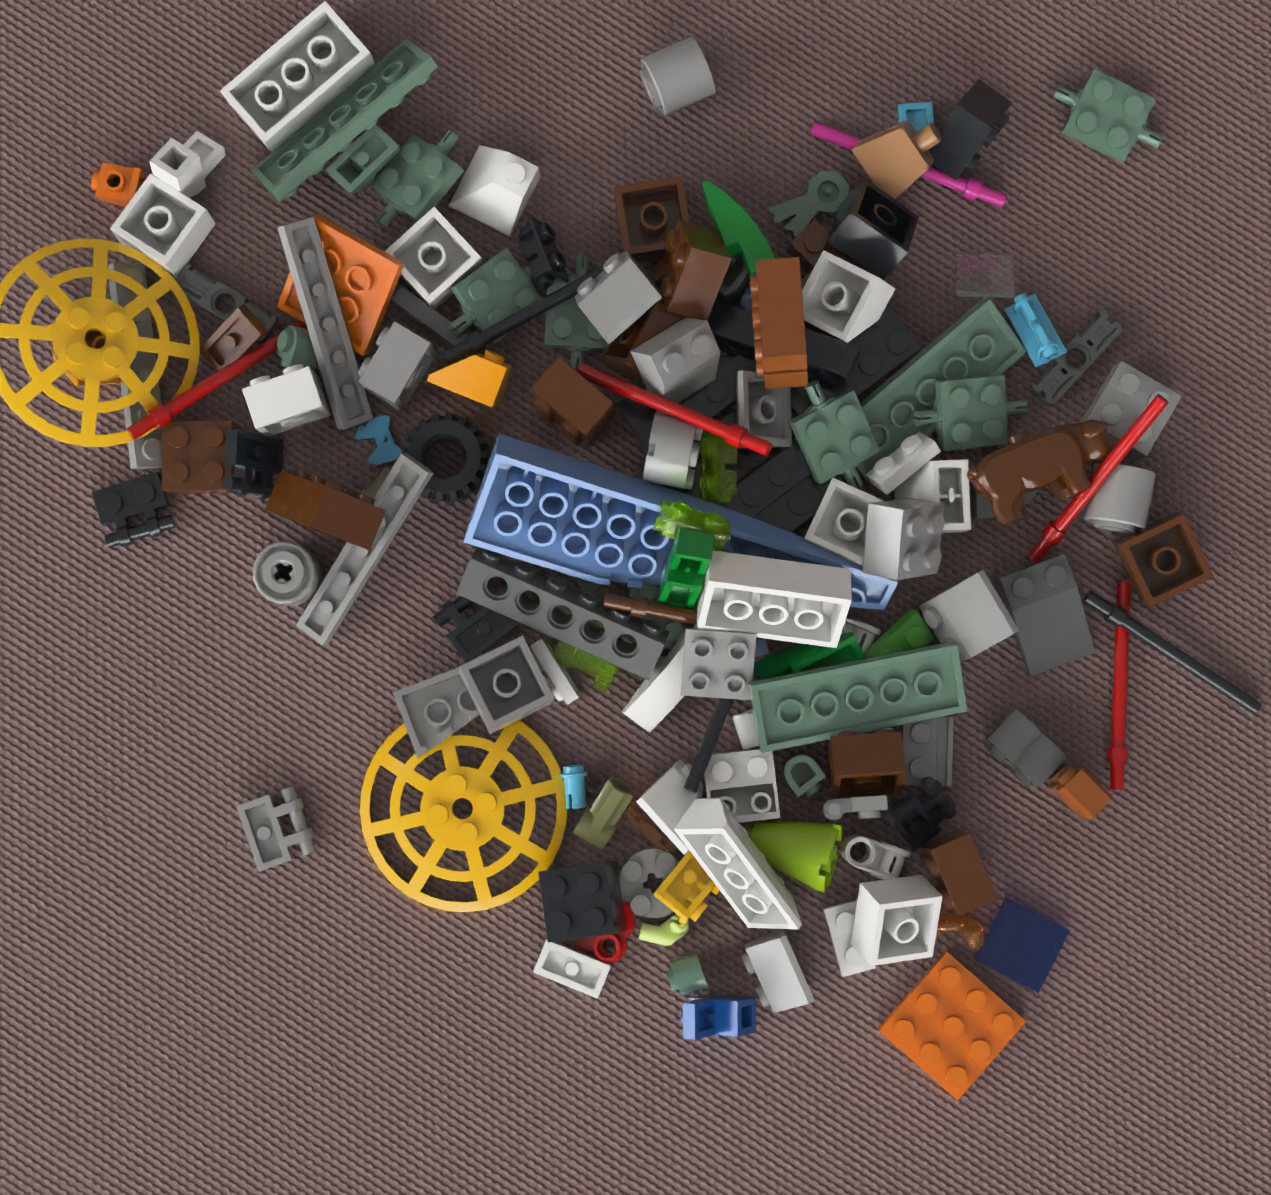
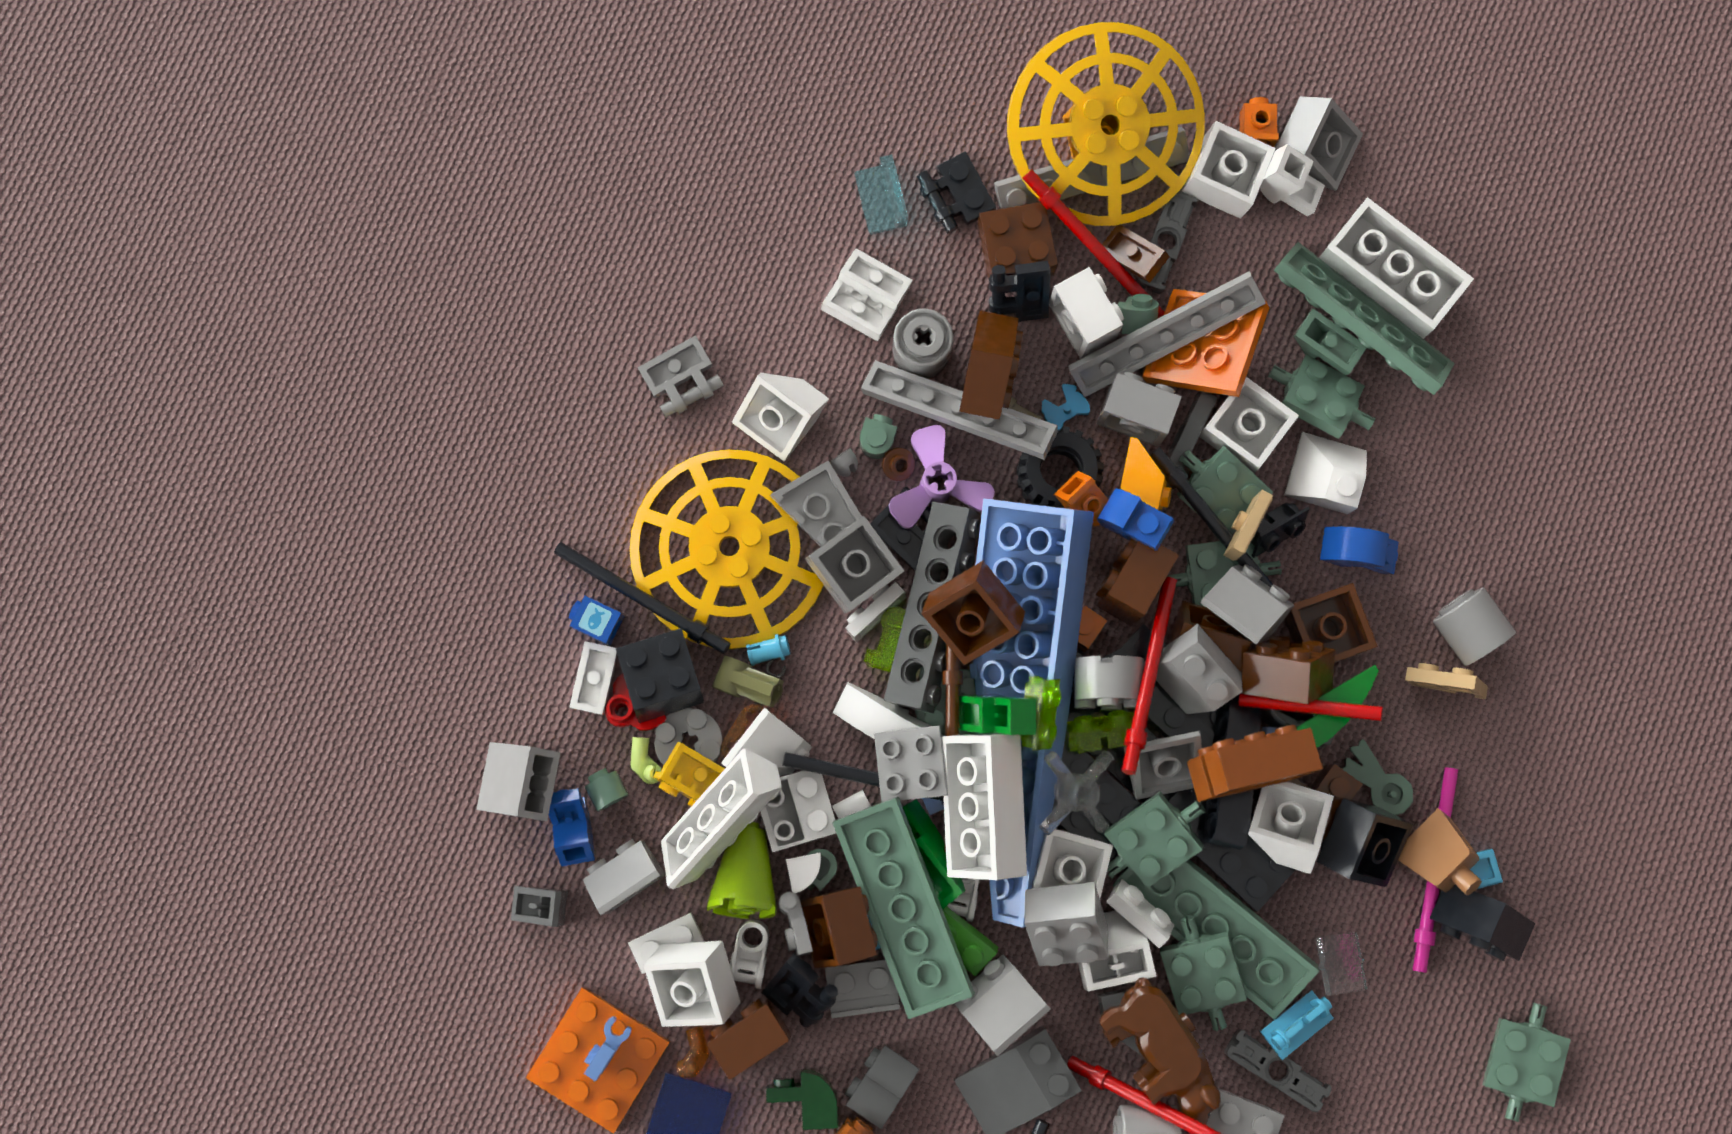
camera: 75 degrees right, 5 degrees down
(123, 588) = (881, 196): none -> clear light blue panel
(145, 122) = (1324, 135): none -> light grey slope
(224, 622) = (866, 294): none -> white slope
(332, 733) = (779, 412): none -> white slope
(375, 637) = (877, 436): none -> sand green plate
(397, 586) = (929, 447): none -> lavender piece
(397, 675) = (845, 463): none -> light grey hinge
(401, 627) = (890, 459): none -> reddish brown plate
(478, 440) = (1079, 491): none -> orange brick
(513, 957) = (595, 620): none -> brick
(514, 393) = (1134, 519): none -> blue brick
(537, 281) = (1247, 525): none -> tan plate
(543, 856) = (696, 629): none -> black bar
(579, 173) = (1359, 549): none -> blue brick
(580, 574) = (973, 612): none -> reddish brown brick
(611, 458) = (1090, 627): none -> orange brick
(665, 1062) = (518, 781): none -> brick
(729, 102) = (1458, 681): none -> tan wing
(734, 248) = (1316, 707): none -> red bar
(775, 503) = (1076, 792): none -> clear bar
(791, 1060) = (539, 906): none -> dark grey slope
(804, 790) = (803, 871): none -> white tile
(951, 1022) = (601, 1056): none -> medium blue plate
(1024, 815) = (817, 1098): none -> dark green brick

